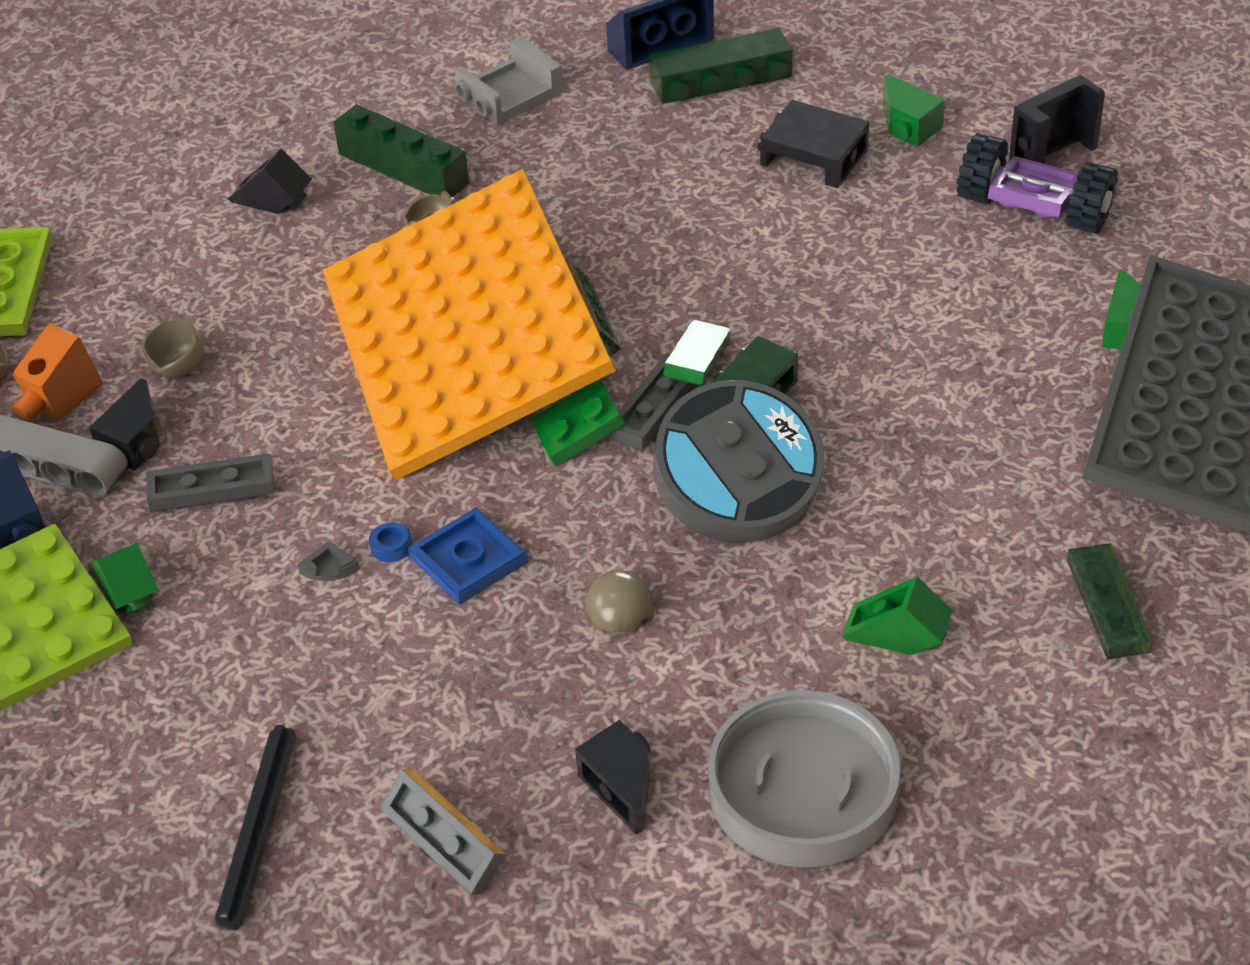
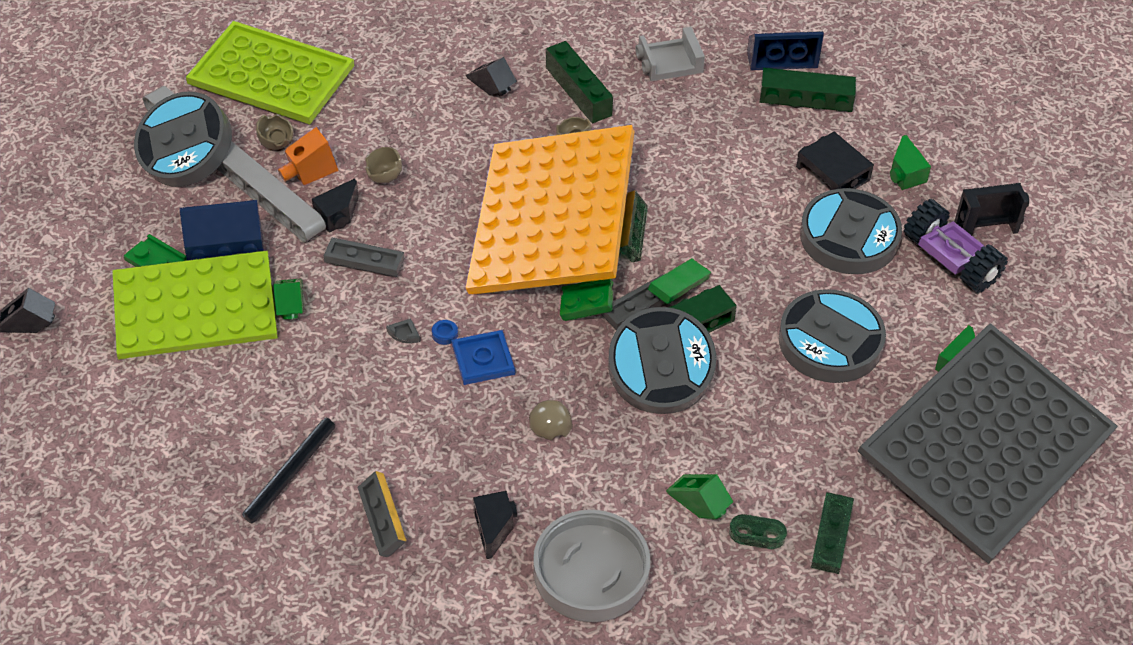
camera: 20 degrees right, 5 degrees up
(885, 215) = (850, 231): none -> brick
(944, 351) = (832, 336): none -> brick
(1004, 639) = (757, 531): none -> clear green plate

